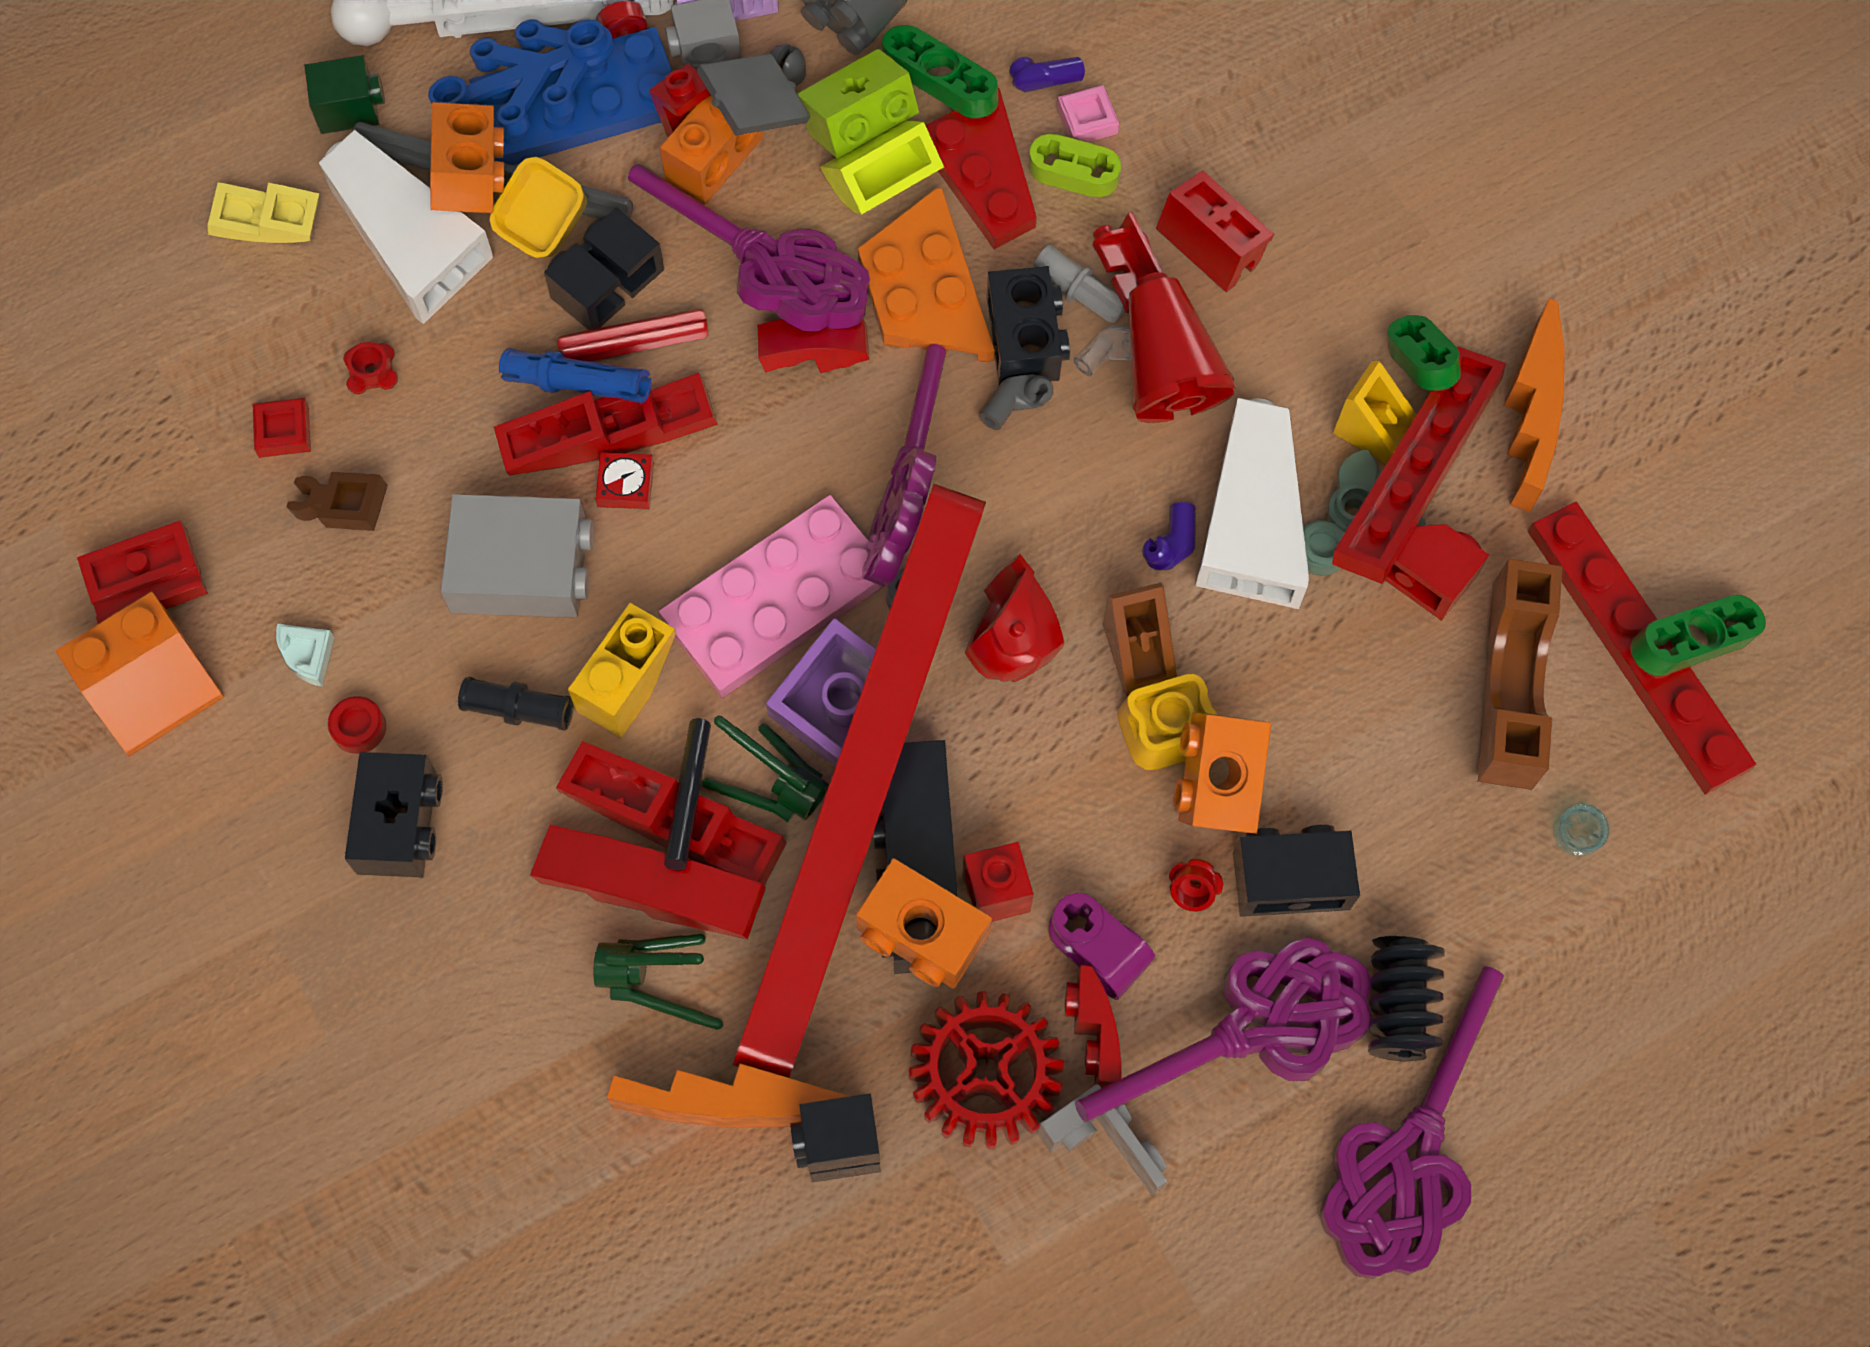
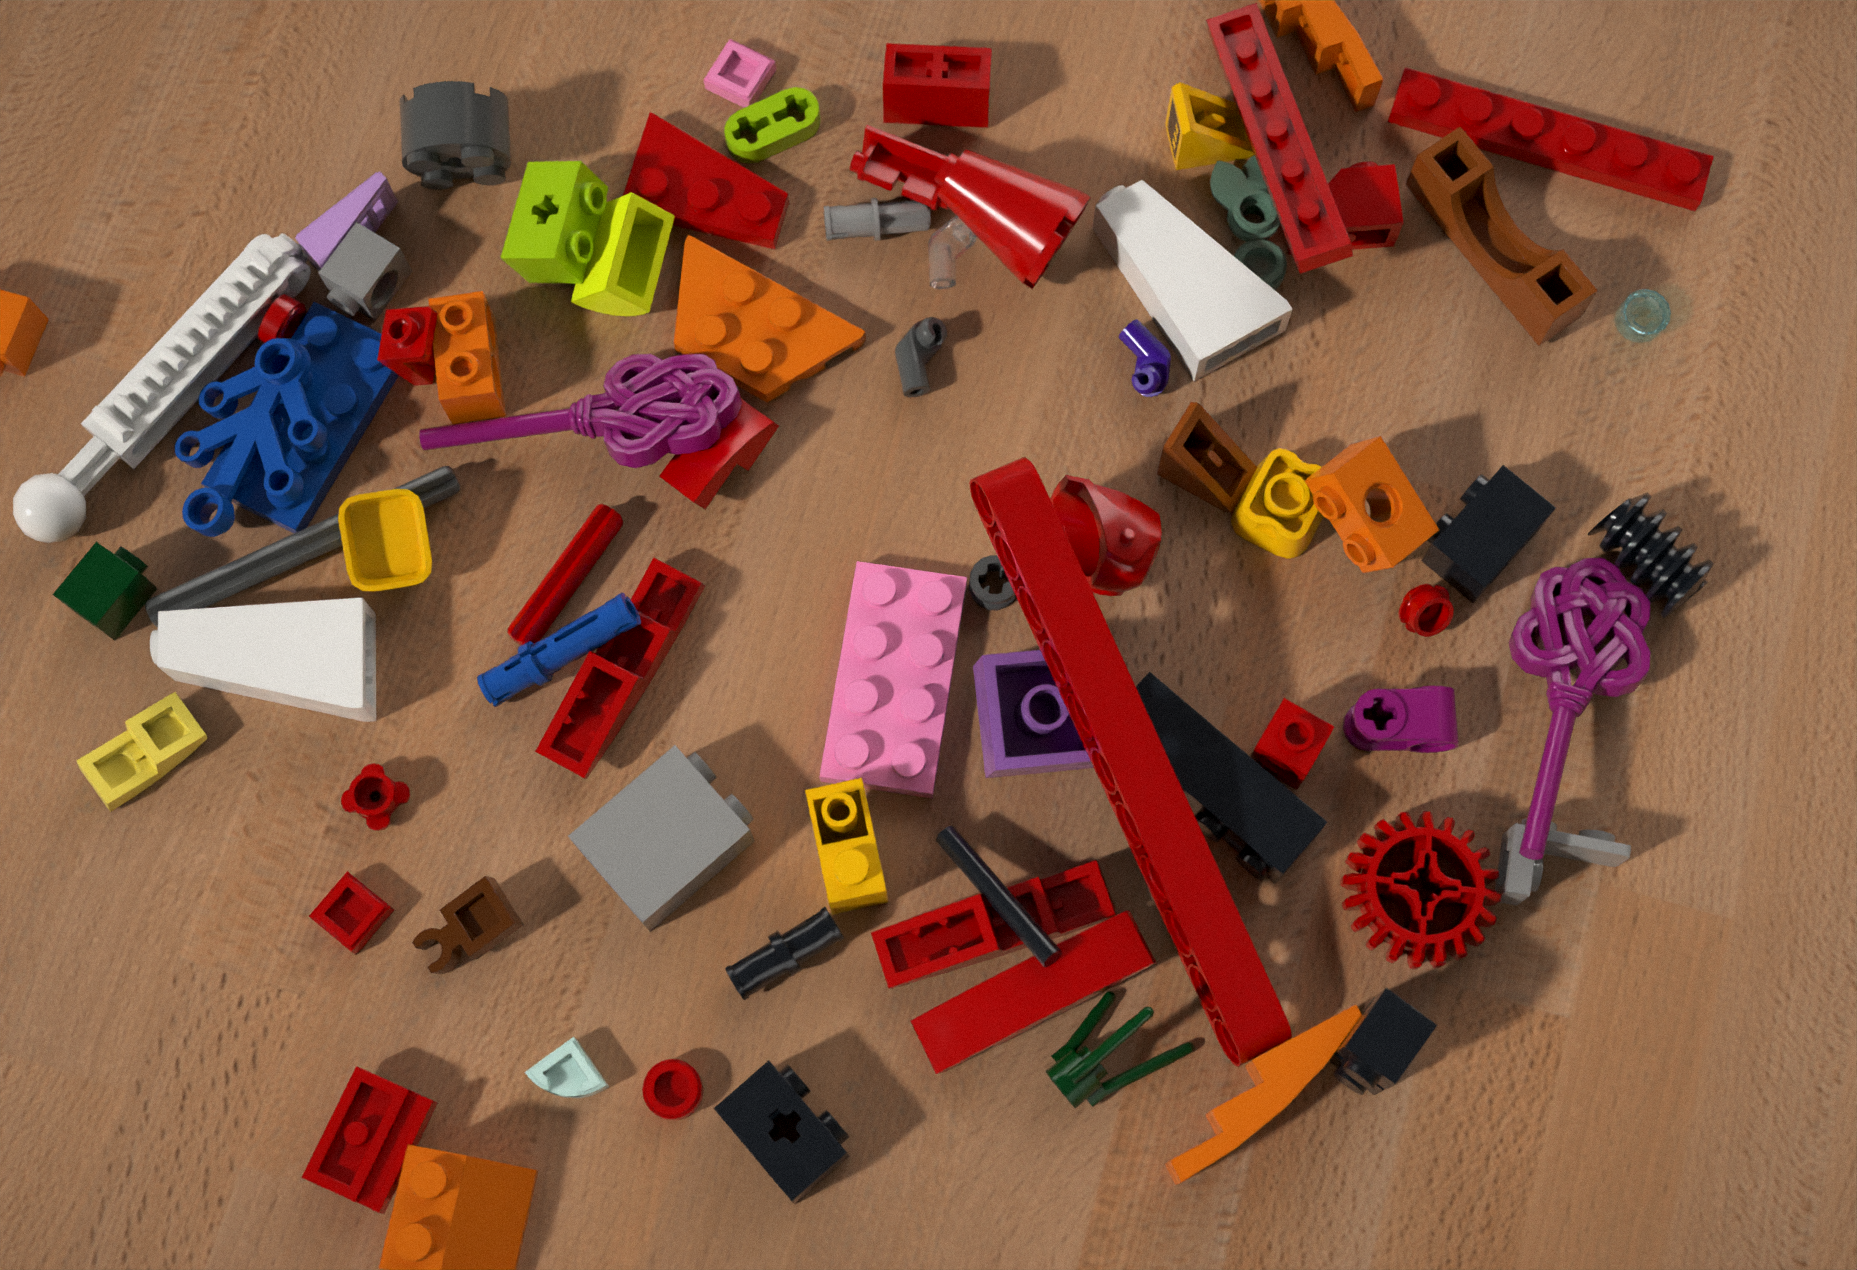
camera: 40 degrees left, 5 degrees up
(463, 158) = (284, 552): orange brick -> none
(612, 256) = (484, 553): black piece -> none
(624, 480) = (681, 697): tile -> none
(753, 94) = (472, 288): dark grey piece -> none
(794, 66) = (467, 241): dark grey hinge -> none
(797, 786) = (1066, 813): dark green plant -> none
(908, 895) = (1313, 804): orange brick -> none
(910, 481) = (941, 523): magenta piece -> none
(950, 88) = (569, 127): green beam -> none
(1020, 325) = (861, 297): black brick -> none
(1034, 76) = (677, 68): dark purple arm -> none
(1094, 1016) = (1447, 772): red slope -> none
(1362, 1222) = (1780, 687): magenta piece -> none
(1424, 352) = (1187, 54): green beam -> none
(1686, 648) = (1575, 104): green beam -> none

